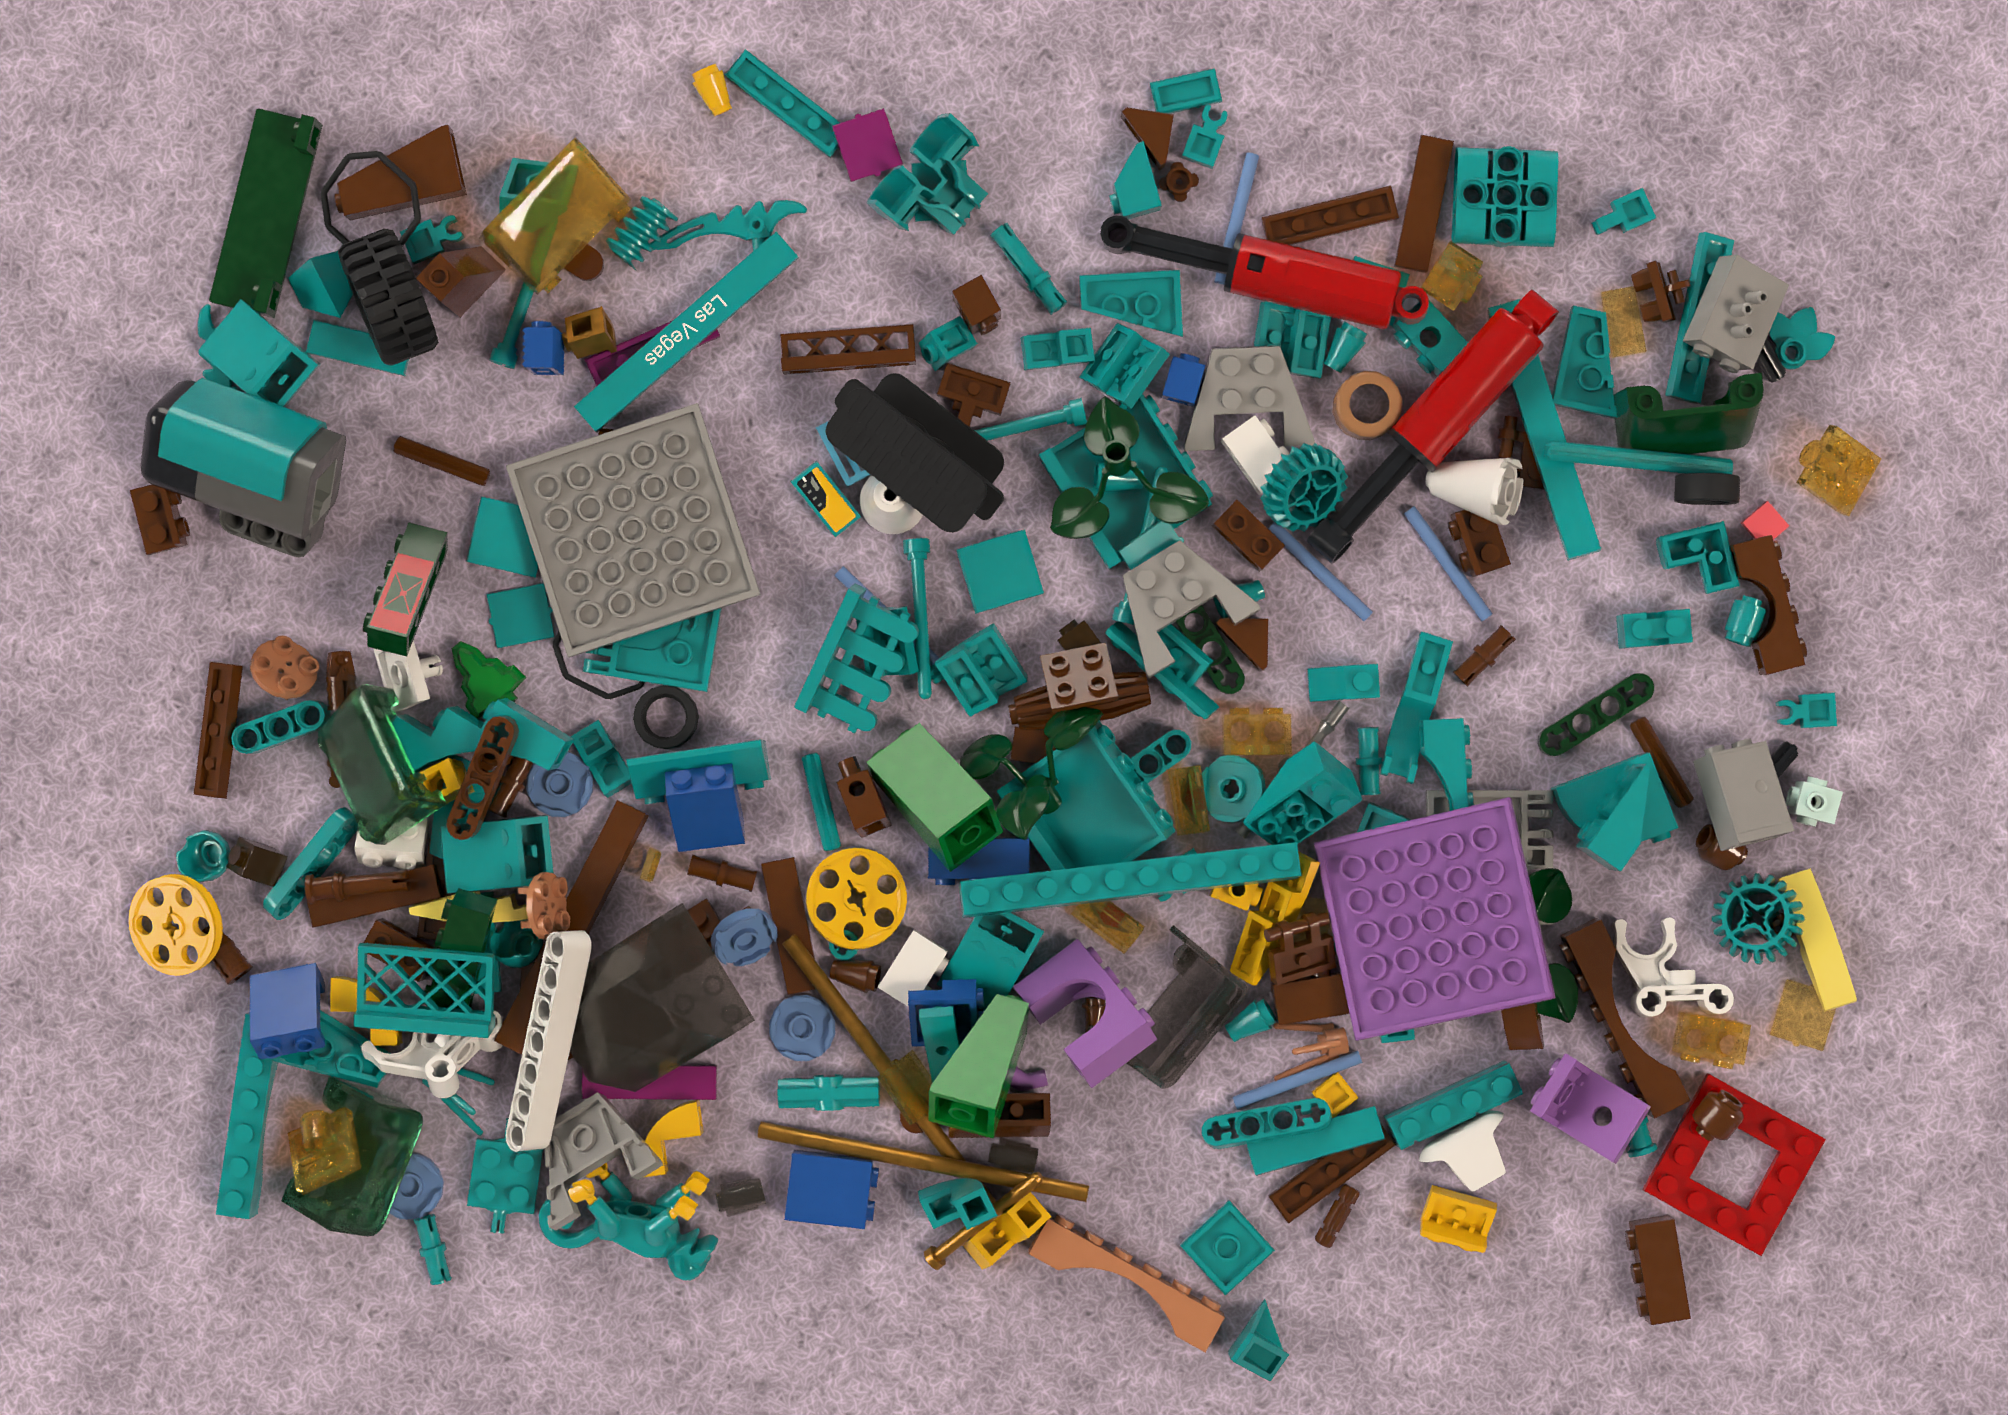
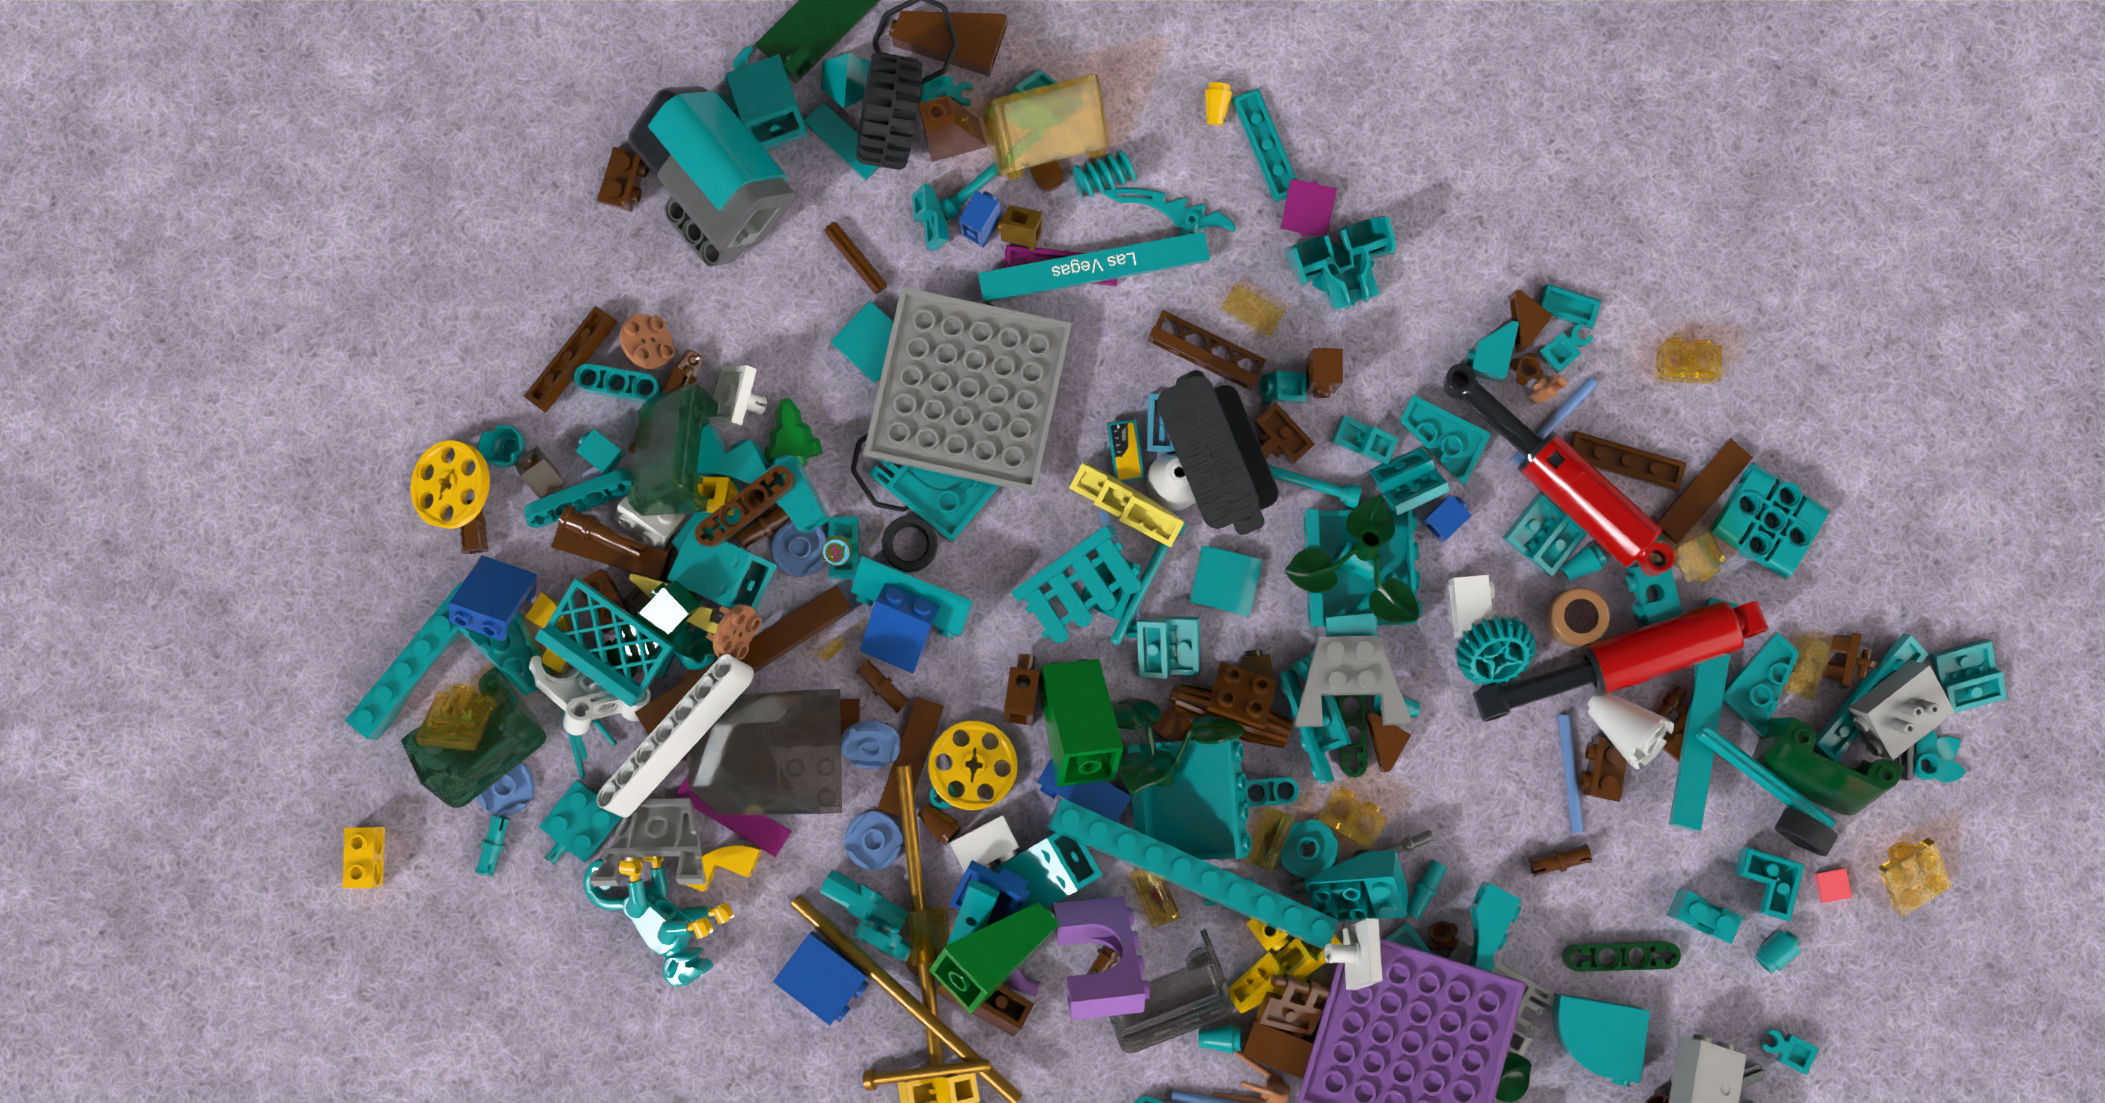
camera: 30 degrees right, 5 degrees down
(303, 805) = (599, 451): none -> teal brick
(314, 1334) = (363, 857): none -> yellow brick
(406, 589) = (772, 334): brick -> none
(486, 370) = (929, 211): none -> teal slope
(520, 615) = (846, 405): teal piece -> none
(597, 766) = (836, 550): none -> clear yellow tile
(740, 1196) = (750, 943): clear smoke brick -> none
(821, 801) = (989, 676): teal axle -> none
(858, 551) = (1127, 504): none -> light yellow slope
(871, 281) = (1252, 310): none -> clear yellow tile
(871, 1118) = (884, 941): none -> teal plate
(957, 1199) = (914, 1044): teal brick -> none
(1013, 1155) = (977, 1035): clear smoke brick -> none
(1033, 274) = (1378, 377): teal pin -> none
(1208, 191) = (1546, 387): none -> nougat plate
(1247, 382) = (1494, 547): light grey wing -> none
(1248, 535) = (1430, 663): reddish brown brick -> none
(1321, 572) = (1469, 722): medium blue bar -> none
(1333, 863) = (1359, 953): none -> white tile
(1340, 88) = (1689, 368): none -> clear yellow brick
(1343, 682) = (1441, 818): teal slope -> none
(1405, 791) = (1440, 929): none -> reddish brown plate
(1415, 705) = (1487, 867): teal piece -> none
(1619, 825) = (1601, 1052): teal slope -> none
(1628, 212) = (1857, 586): teal plate -> none
(1665, 767) = (1652, 1001): reddish brown axle -> none
(1779, 643) = (1797, 983): reddish brown arch -> none
(1787, 238) = (1969, 675): none -> teal slope

